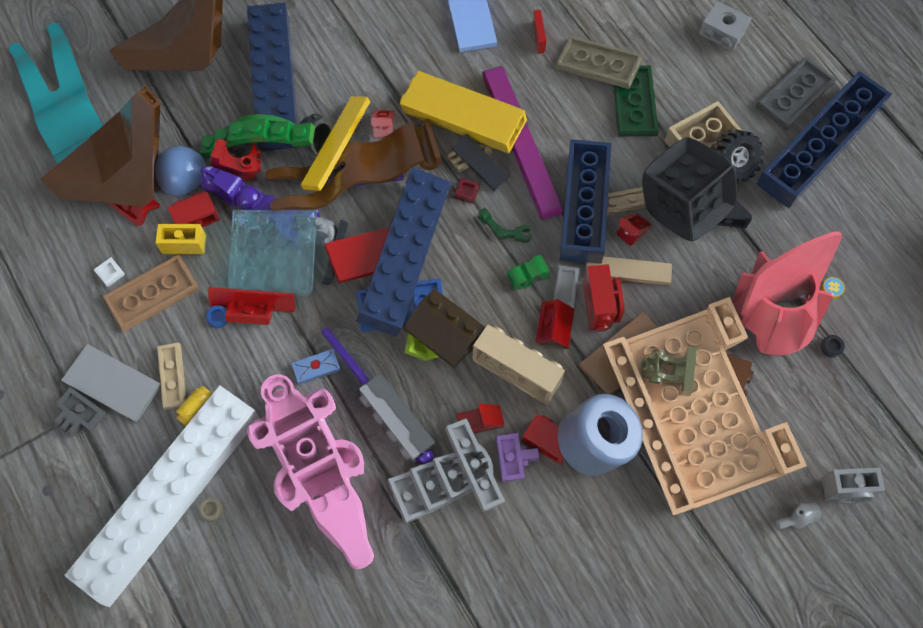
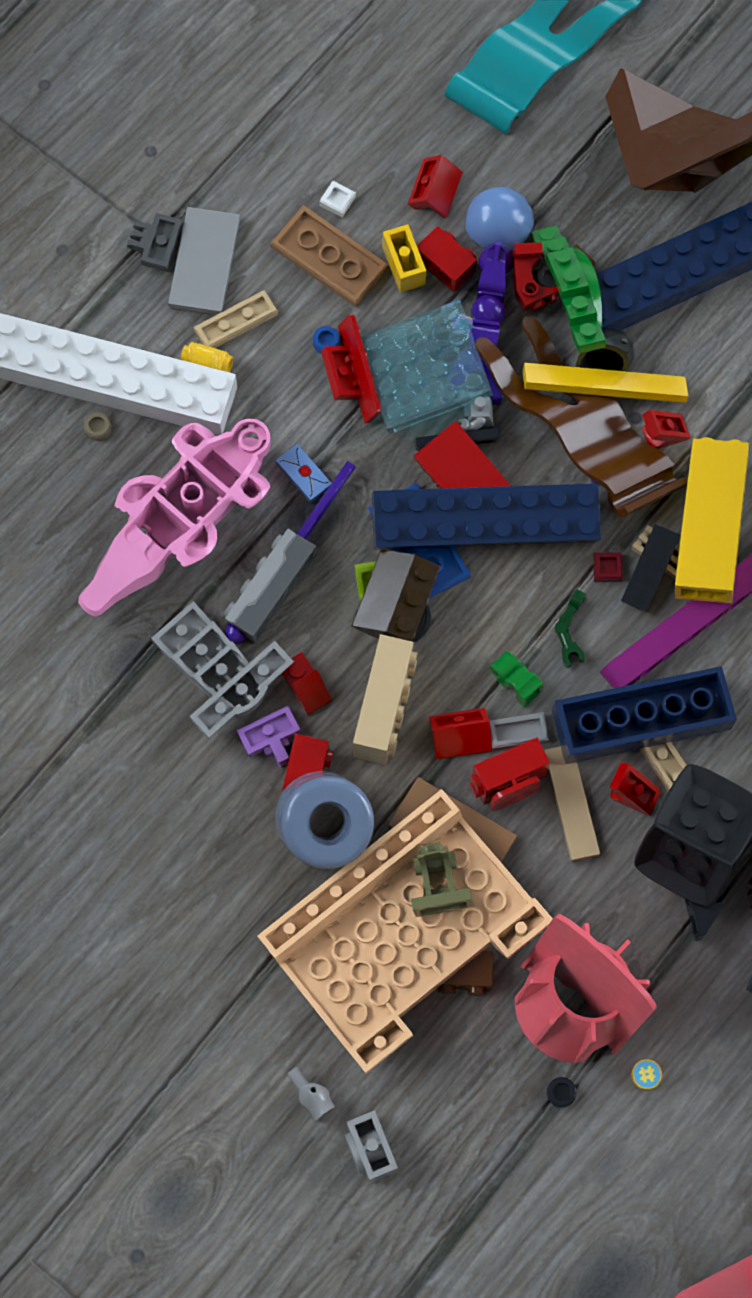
camera: 70 degrees right, 5 degrees up
(116, 160) = (468, 138): reddish brown panel -> none

